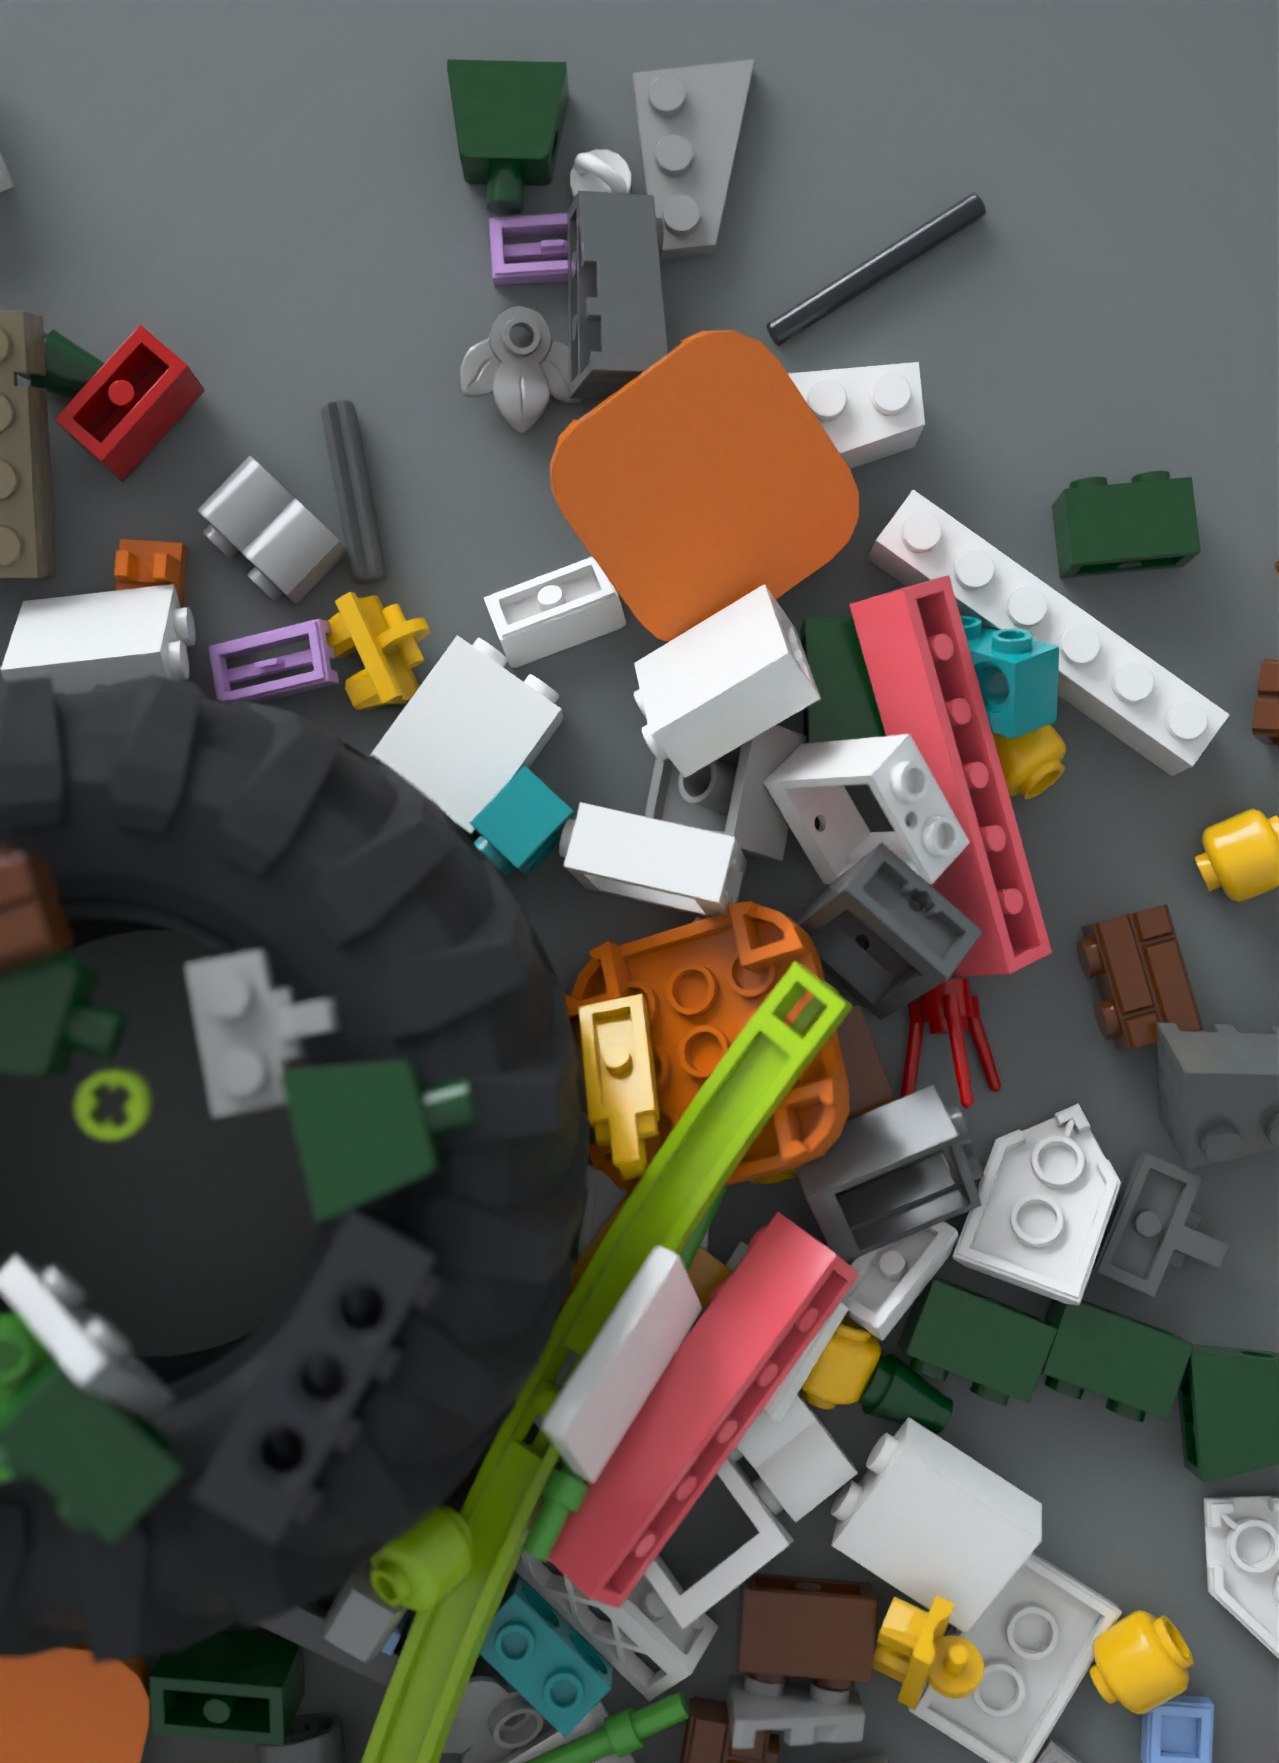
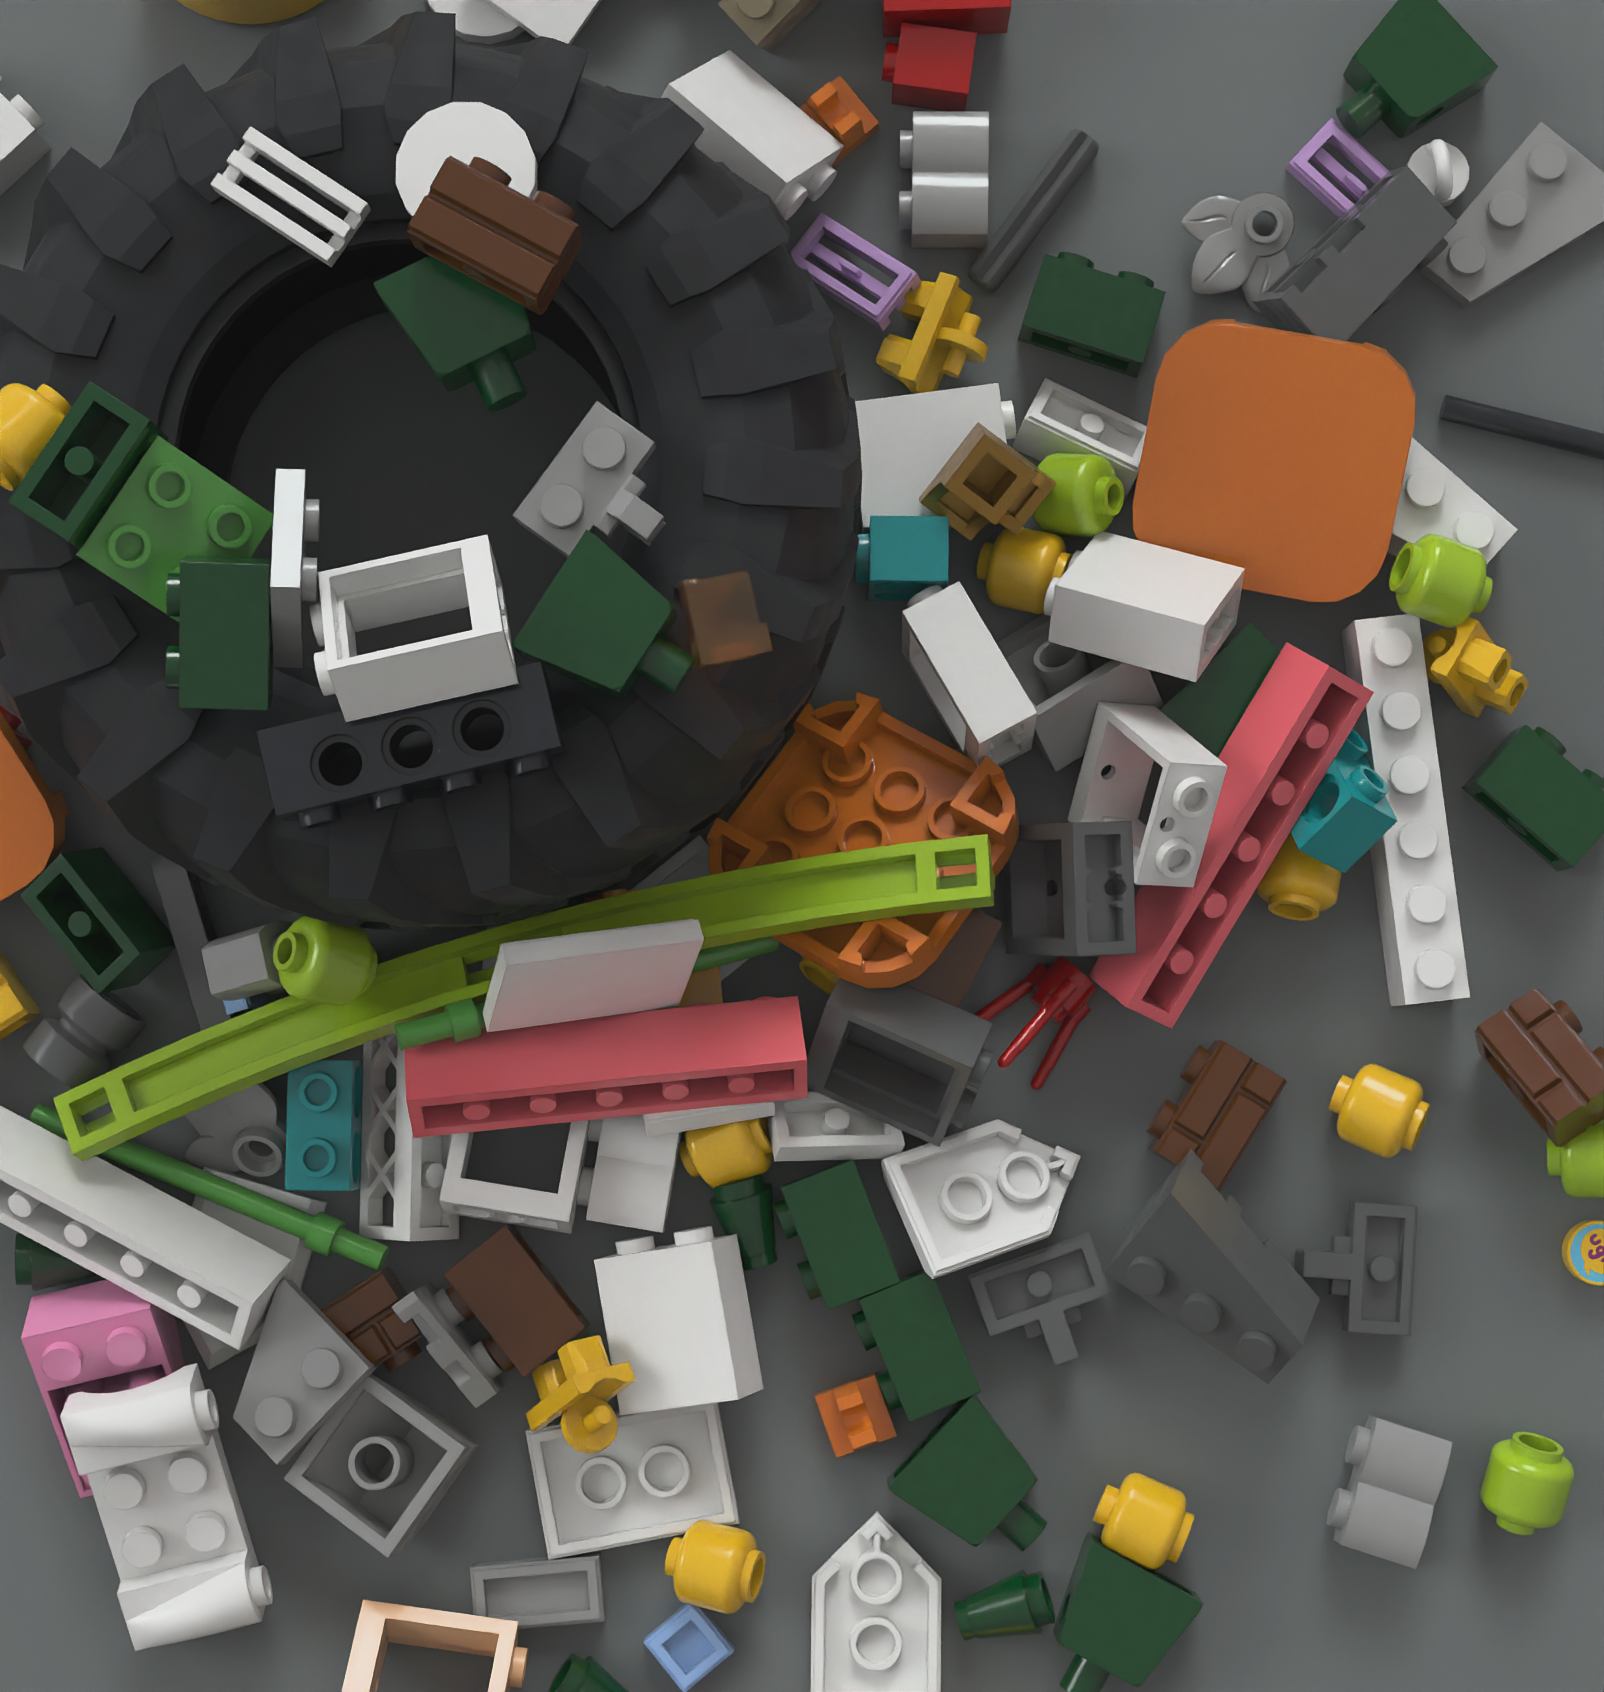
camera: 50 degrees right, 0 degrees up
(90, 1099) = (446, 424): lime bush -> none
(176, 467) = (930, 67): none -> red brick
(187, 1265) = (404, 590): none -> white window
(454, 1026) = (723, 619): none -> clear orange panel
(469, 519) = (1092, 313): none -> dark green brick
(525, 715) = (985, 485): none -> pearl gold brick
(590, 656) = (1084, 495): none -> lime head
(609, 744) = (1022, 567): none -> yellow head
(620, 1079) = (787, 795): yellow hinge -> none
(907, 450) = (1440, 580): none -> lime head
(987, 488) = (1473, 669): none -> yellow hips
(1119, 1449) = (855, 1415): none -> orange tile

